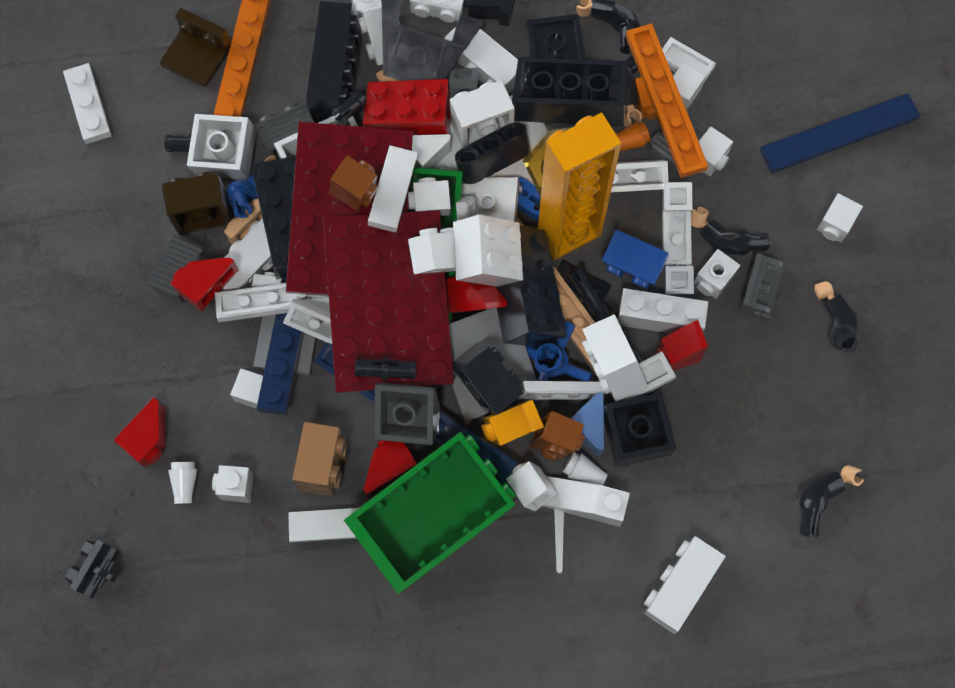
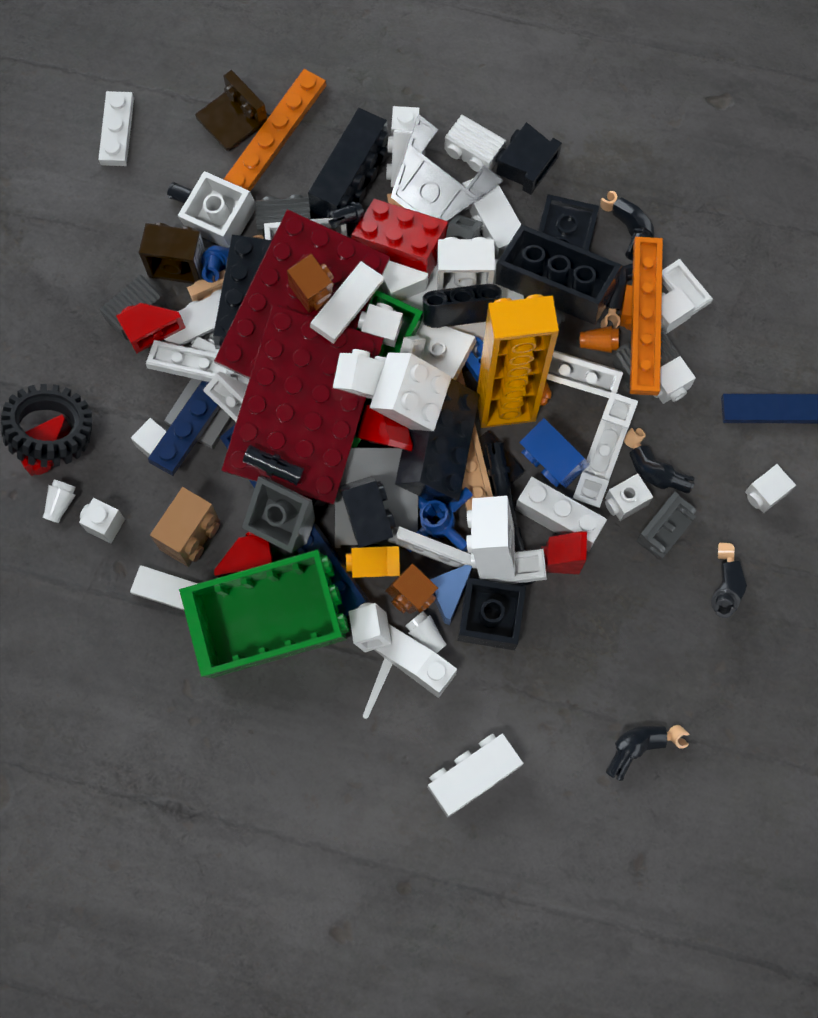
camera: 20 degrees right, 0 degrees up
(143, 440) = (53, 400): none -> black tyre

